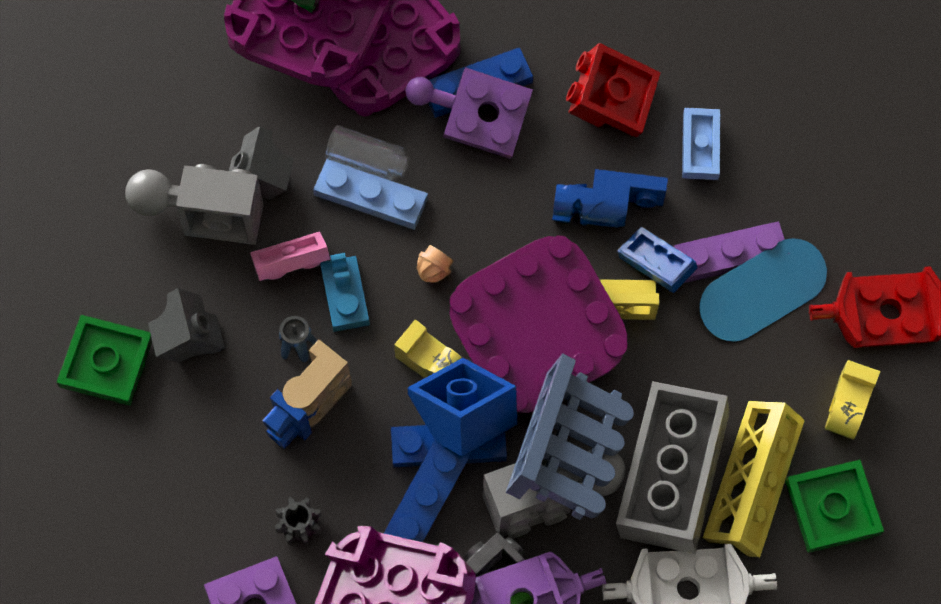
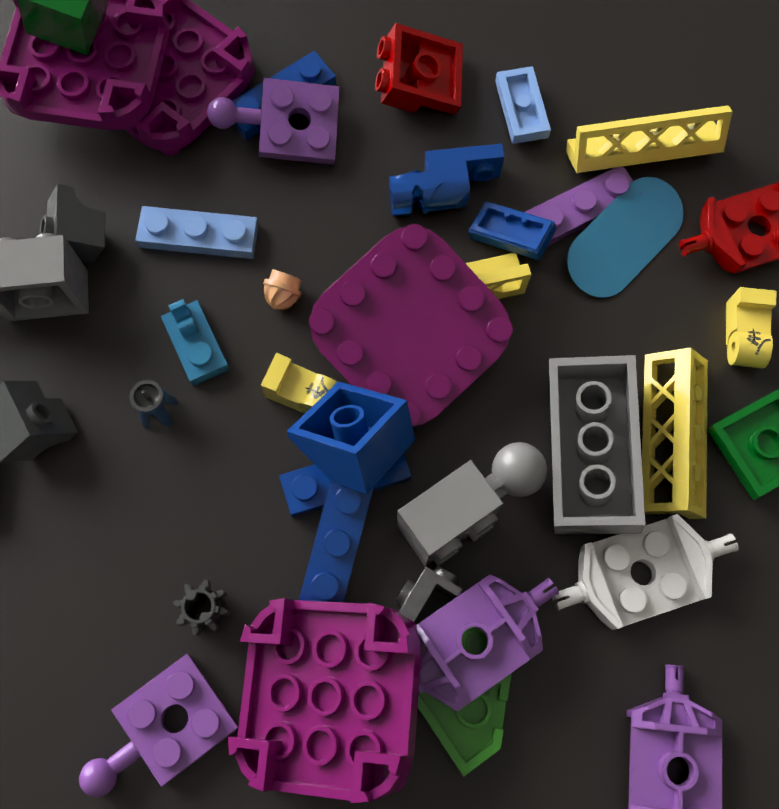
camera: 15 degrees left, 5 degrees up
(289, 256) = (117, 321): bright pink plate -> none
(308, 396) = (179, 466): tan hips -> none
(367, 153) = (182, 190): clear brick -> none
(542, 444) = (455, 462): sand blue fence -> none
(808, 205) = (649, 139): none -> light yellow fence

